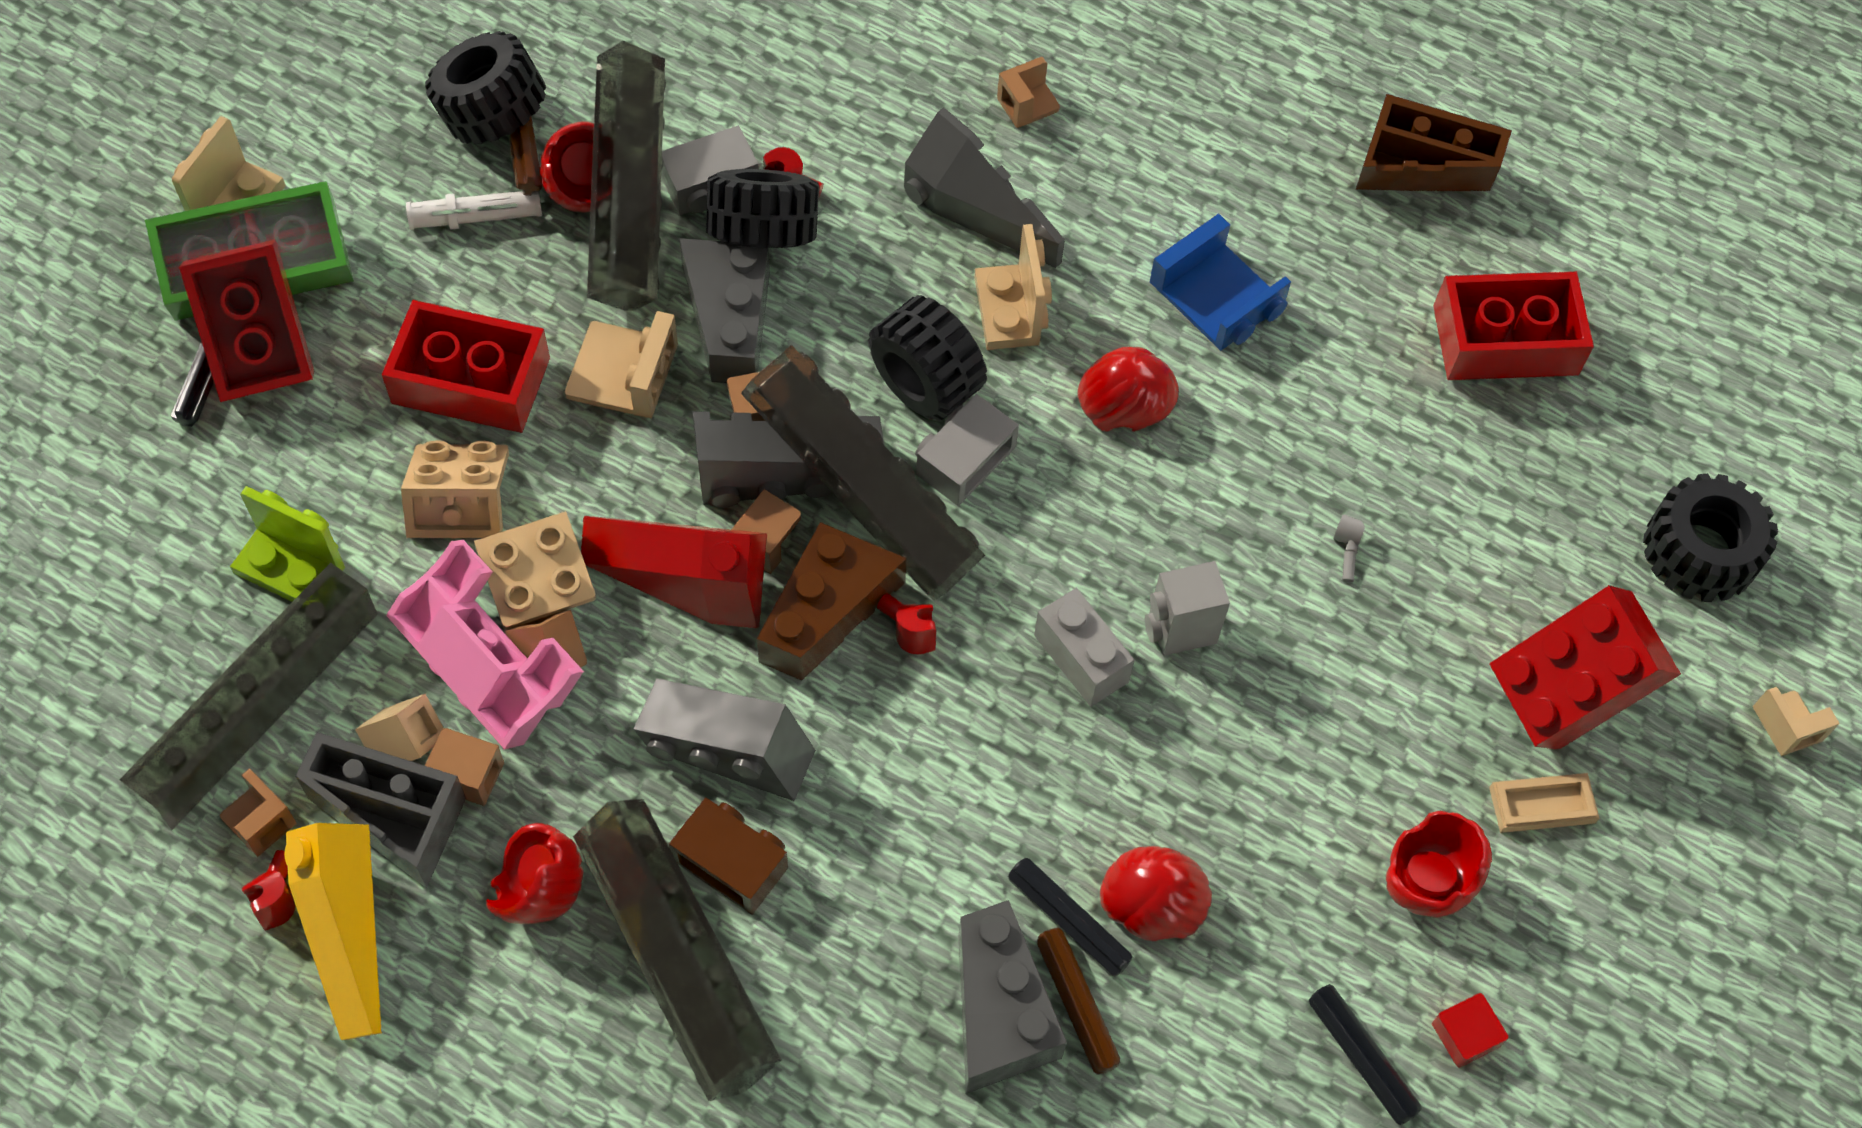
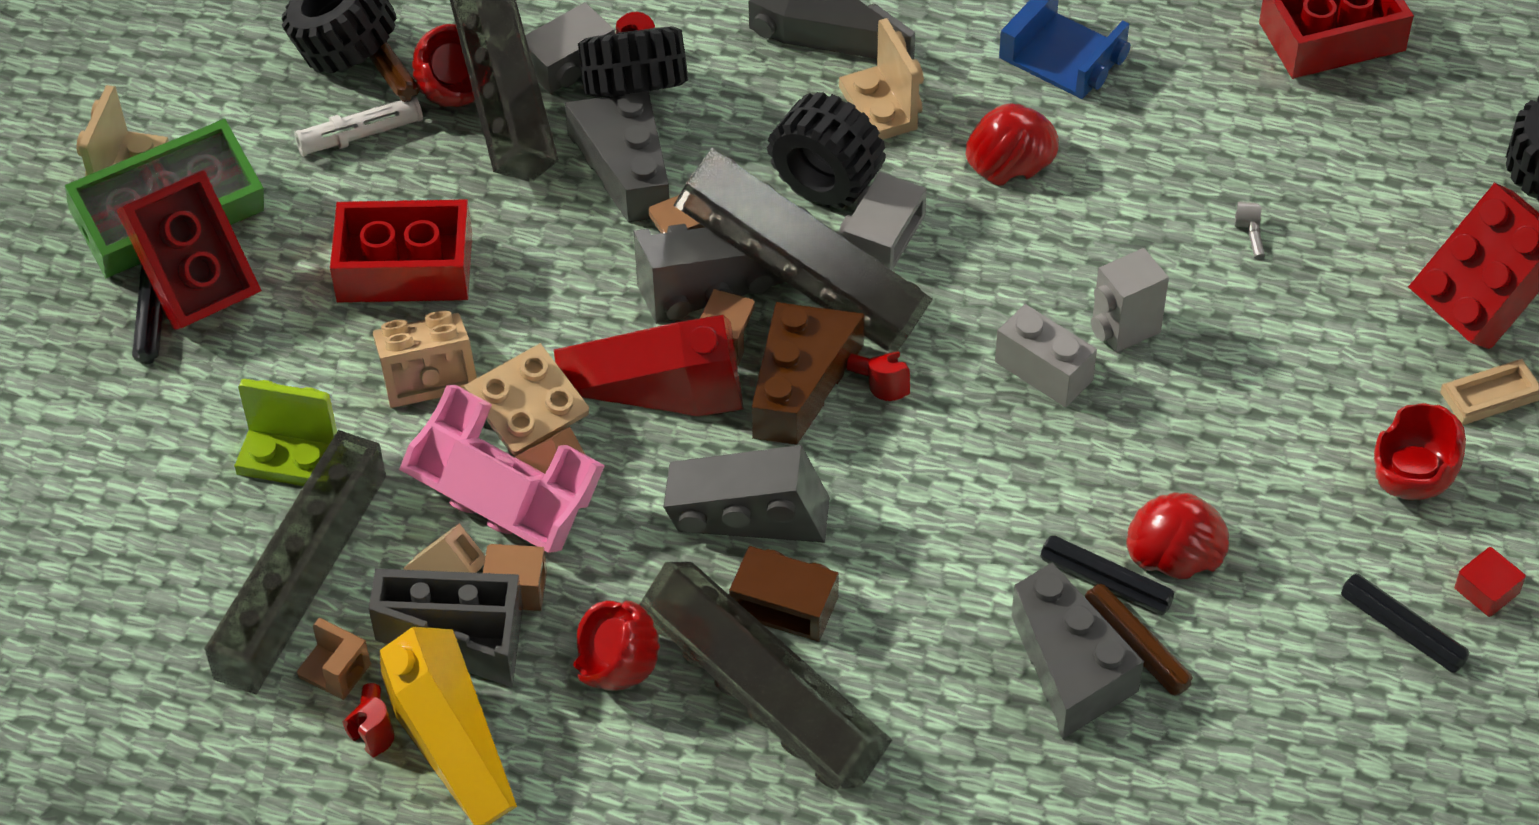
camera: 10 degrees left, 10 degrees down
(624, 366) = (545, 224): tan bracket -> none

